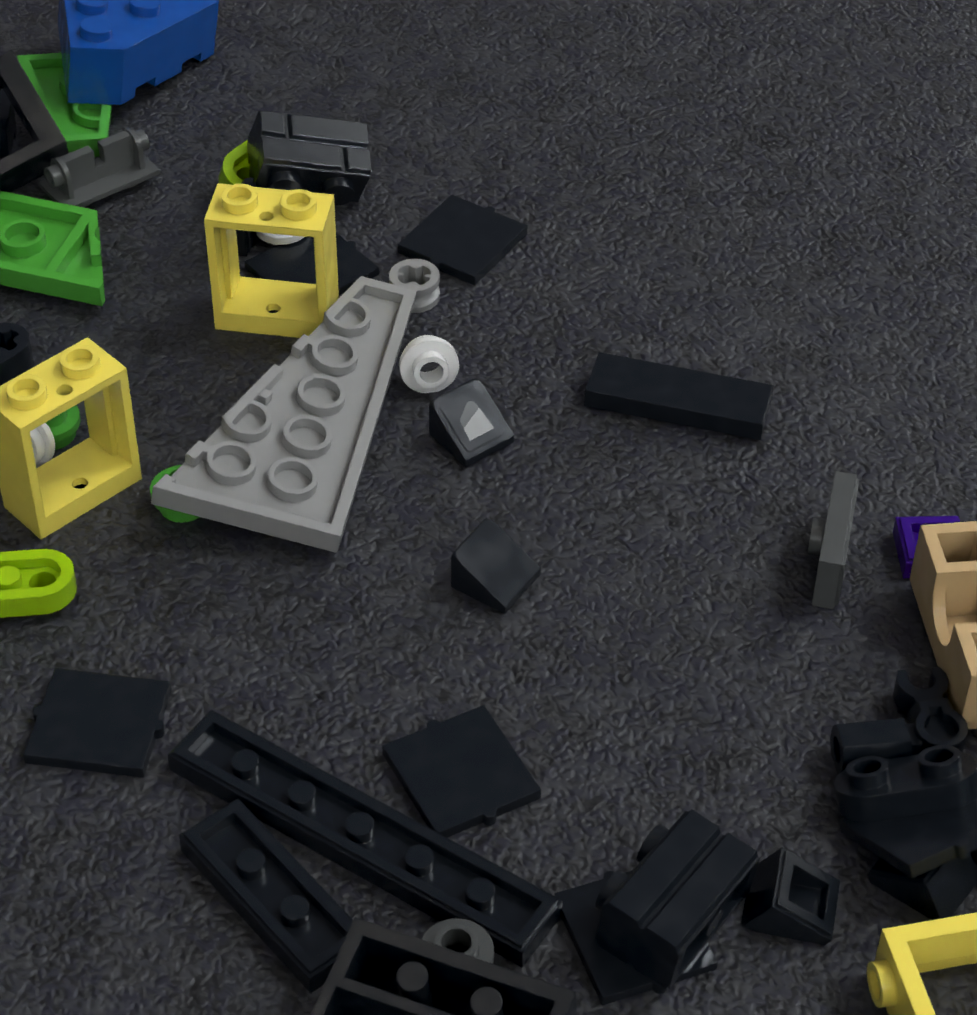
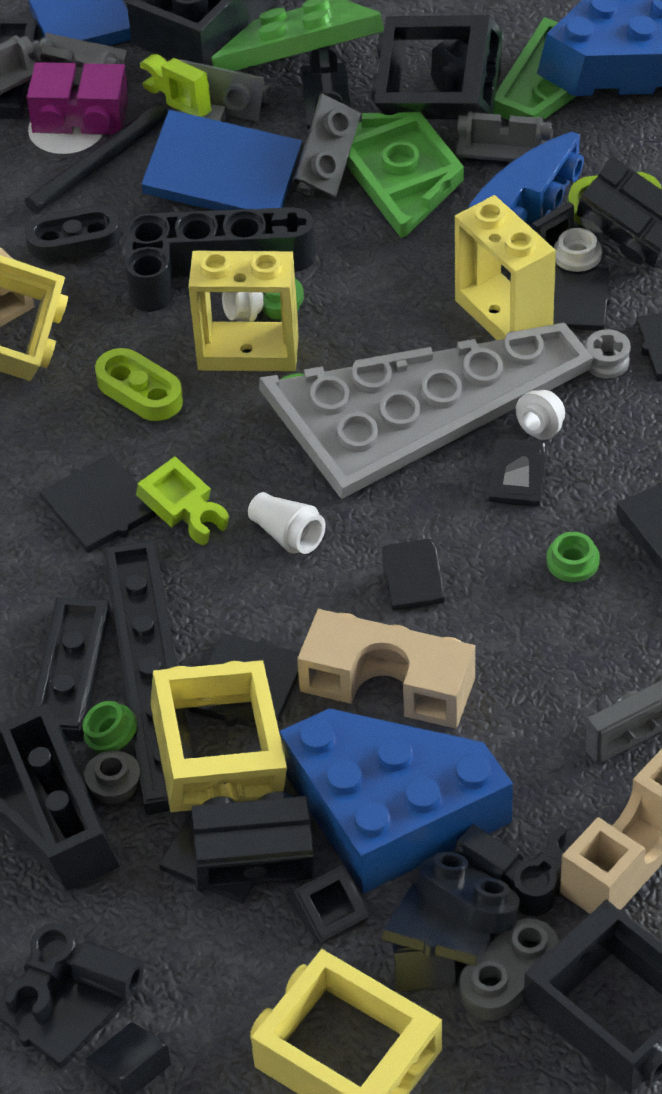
camera: 50 degrees right, 5 degrees up
(179, 203) = (537, 179): none -> blue slope
(187, 655) = (181, 495): none -> lime plate
(321, 602) = (290, 523): none -> white cone
(394, 892) = (109, 726): none -> bright green plate
(505, 869) = (198, 779): none -> light yellow window
(605, 457) = (573, 557): none -> bright green plate
(627, 629) = (350, 650): none -> tan arch
(731, 746) = (392, 790): none -> blue brick

